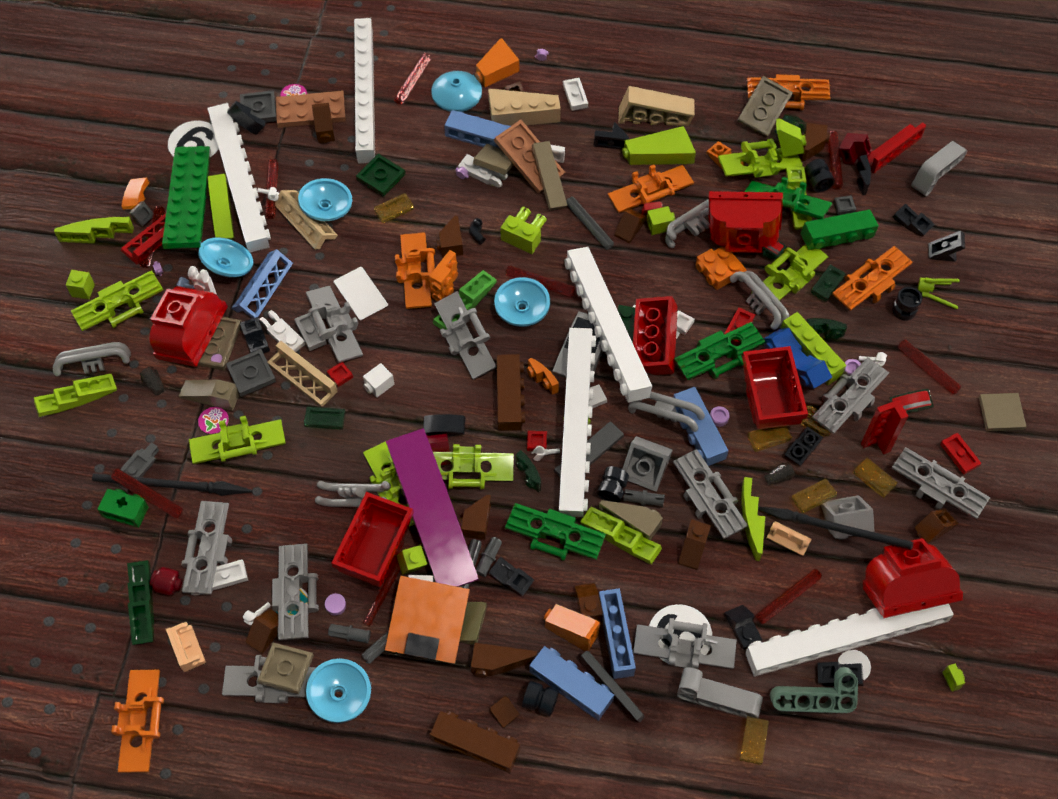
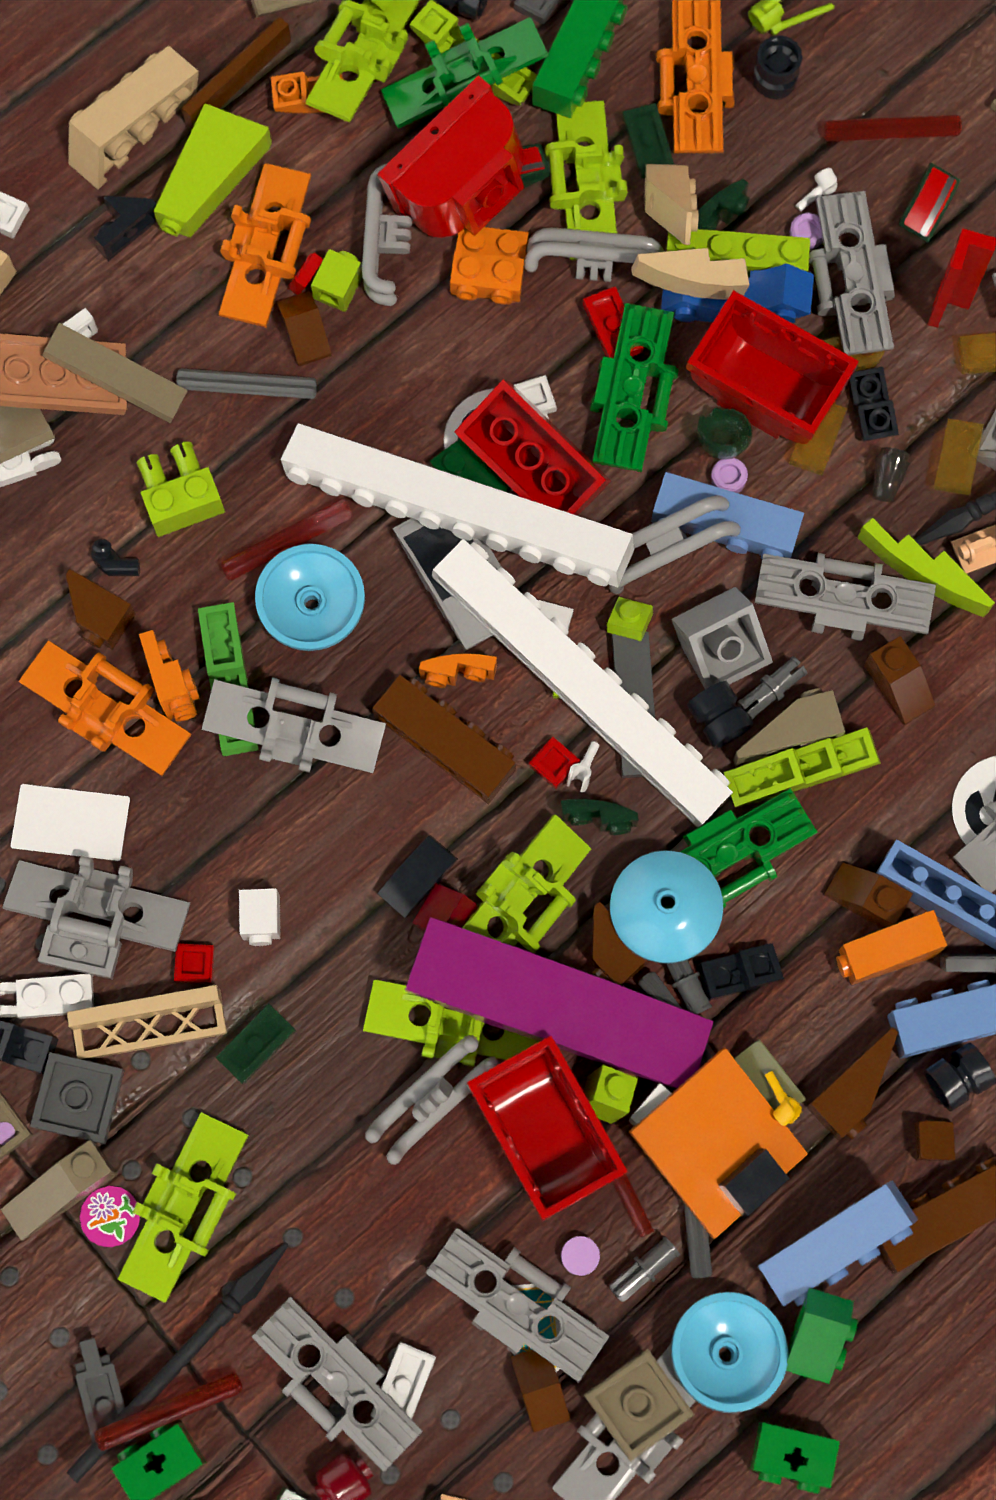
camera: 50 degrees left, 15 degrees up
(249, 616) = (502, 1396): white hand -> none
(323, 764) = (818, 1455): none -> green brick
(374, 722) = (820, 1336): none -> green brick
(422, 698) = (838, 1243): none -> medium blue brick
(466, 636) = (789, 1108): none -> yellow hand
(510, 532) = (659, 932): none -> medium azure dish
(622, 422) = (629, 619): none -> lime plate
(711, 130) = (239, 70): none -> reddish brown tile
(734, 398) = (724, 433): none -> clear green hair
(784, 330) = (692, 273): none -> tan slope
(811, 304) = (672, 199): none -> tan slope

